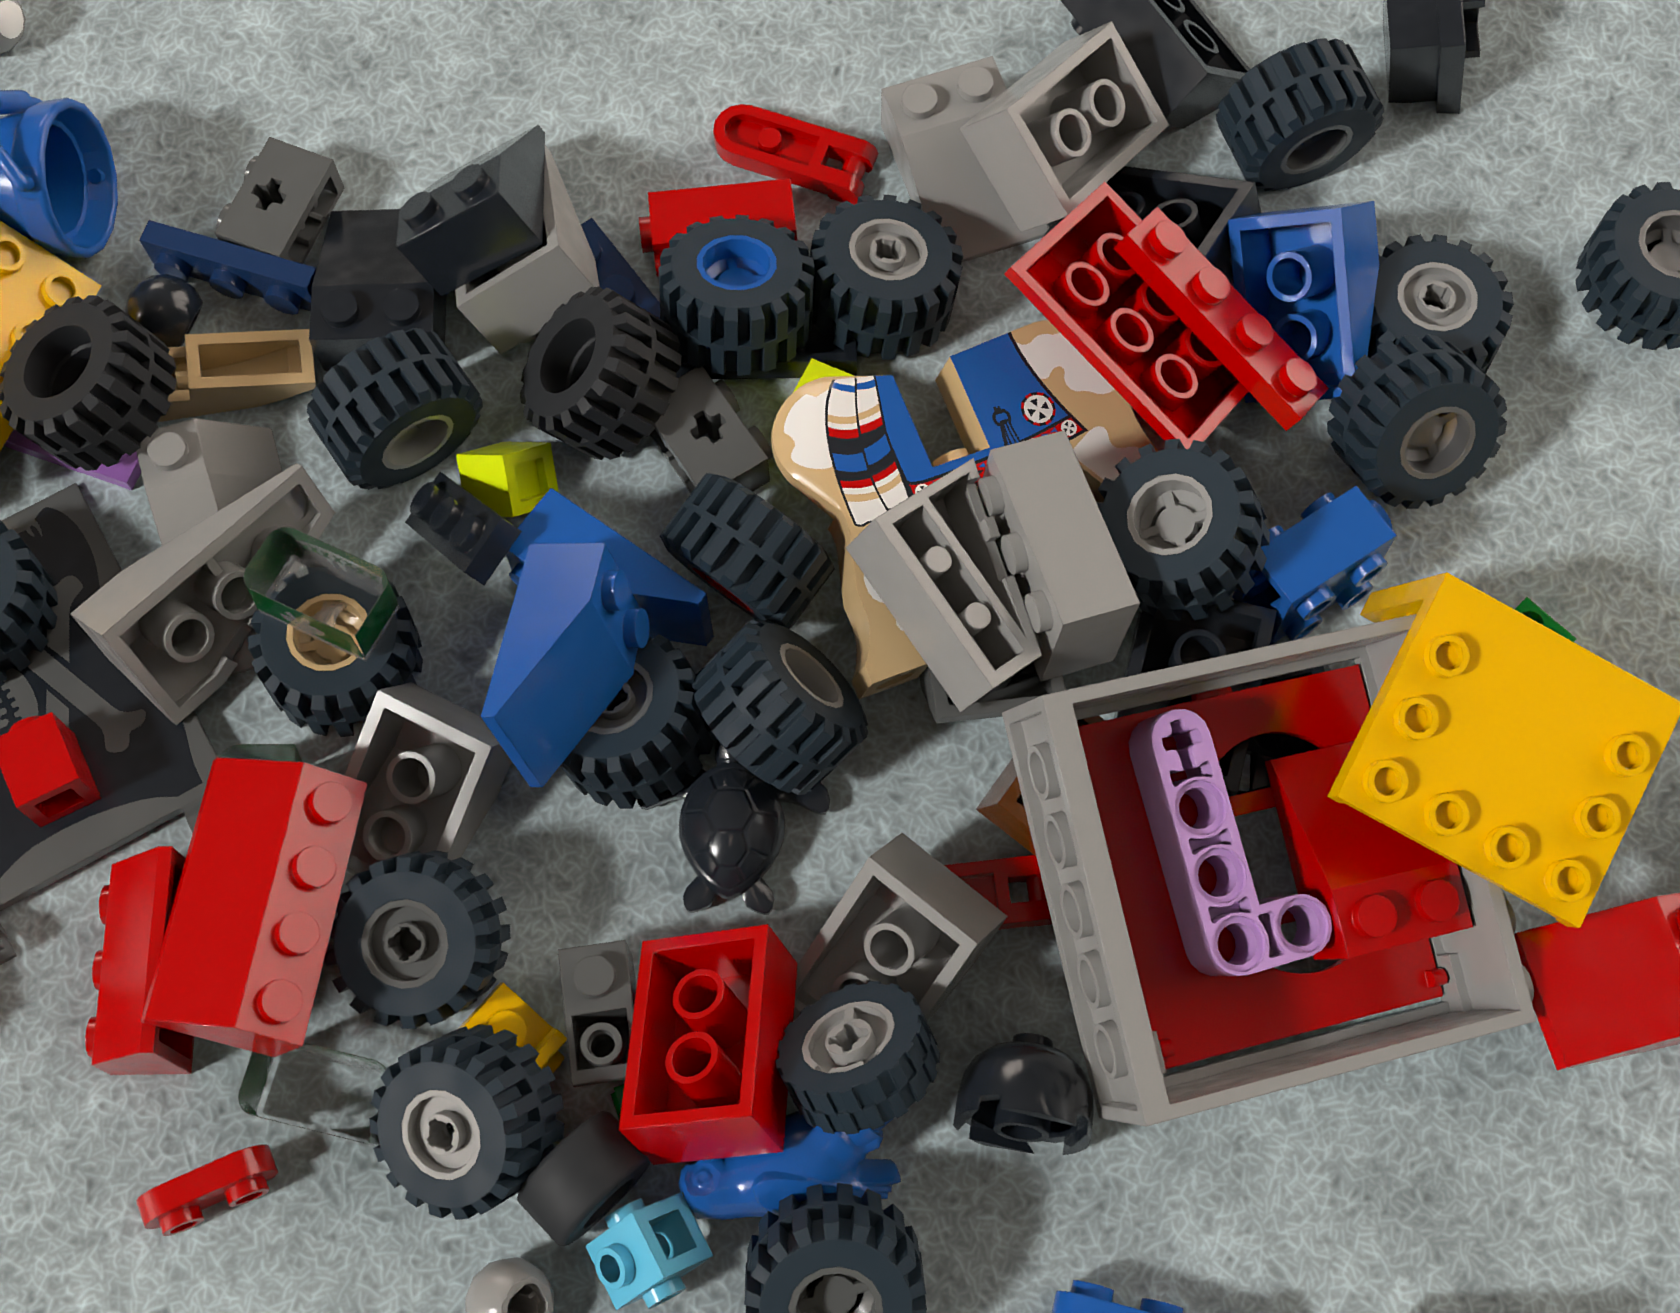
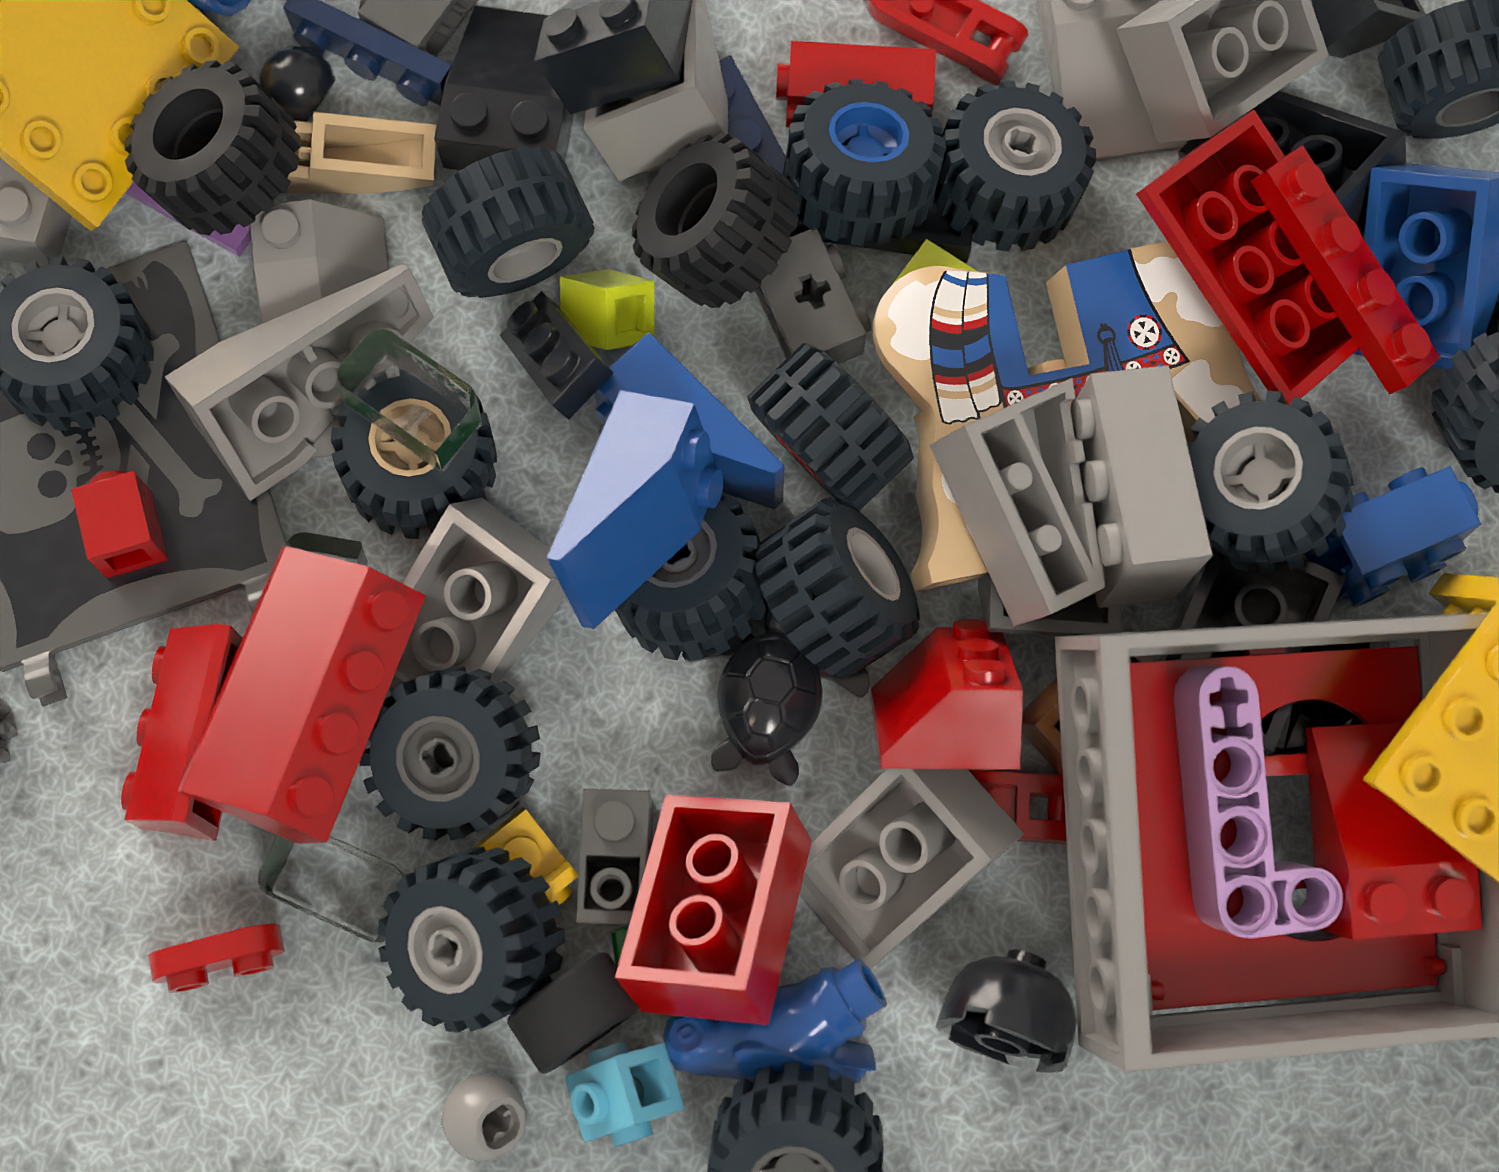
camera: 10 degrees right, 5 degrees up
(858, 1057) = (856, 948): black wheel -> none
(912, 798) = (951, 703): none -> red slope

